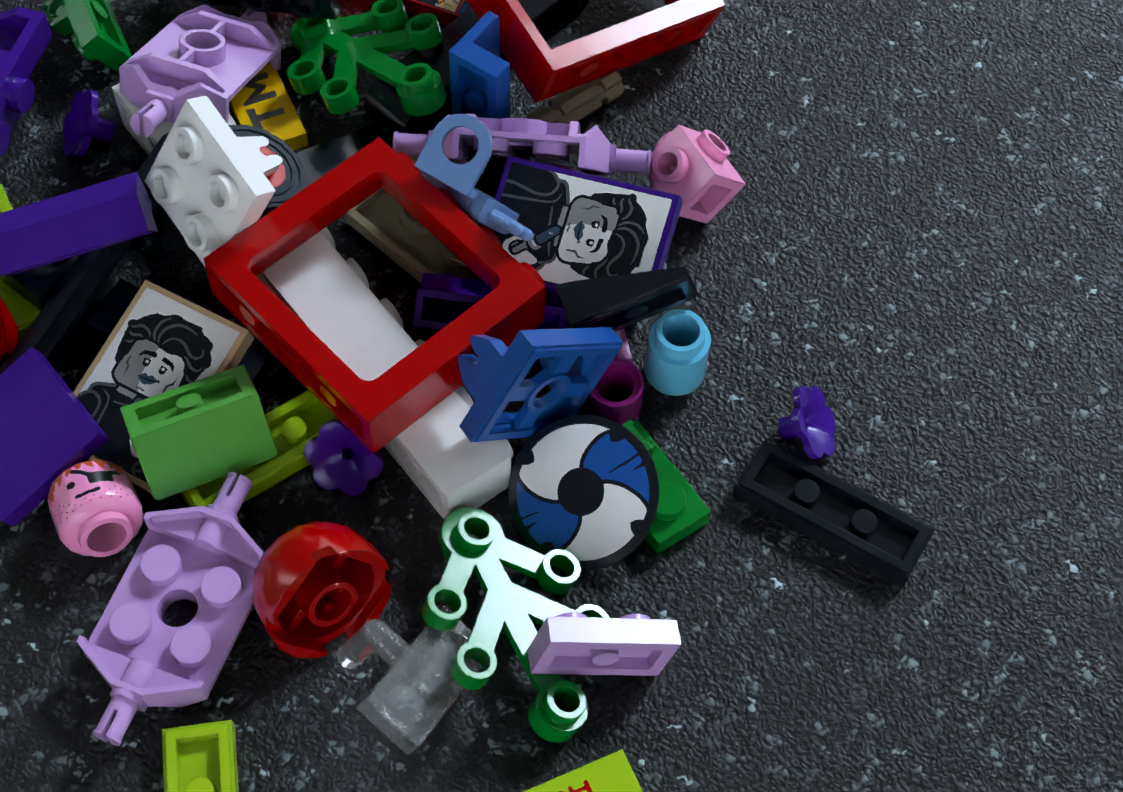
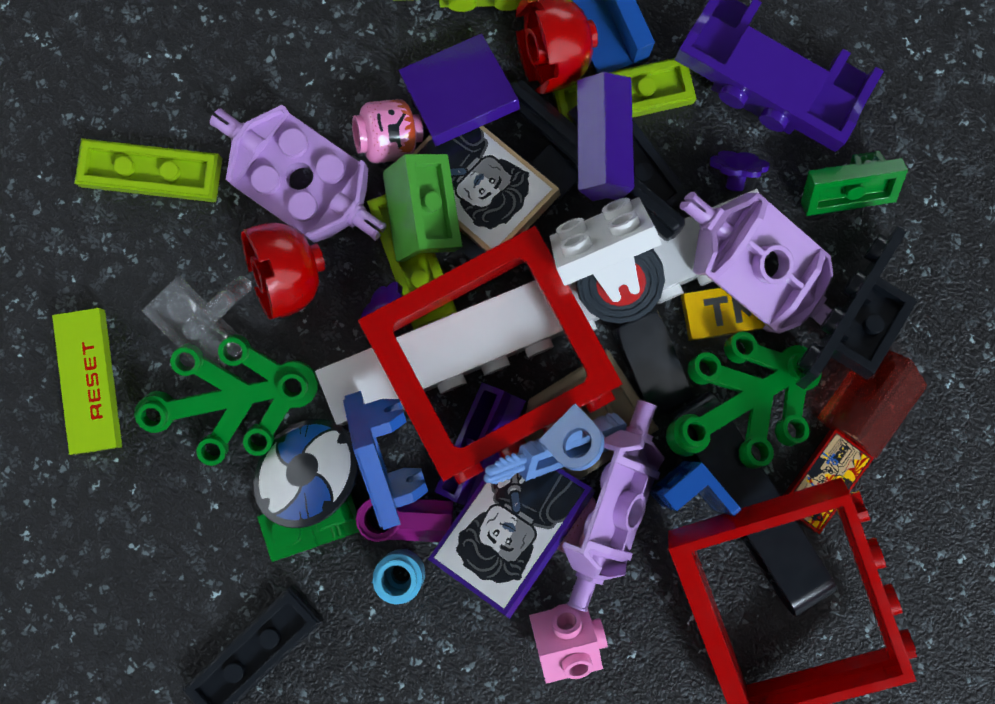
camera: 105 degrees right, 25 degrees up
(580, 101) = (658, 537): dark tan axle -> none
(603, 645) = (181, 434): lavender plate -> none
(625, 298) = (428, 533): black slope -> none
(810, 422) = (321, 660): dark purple plant -> none

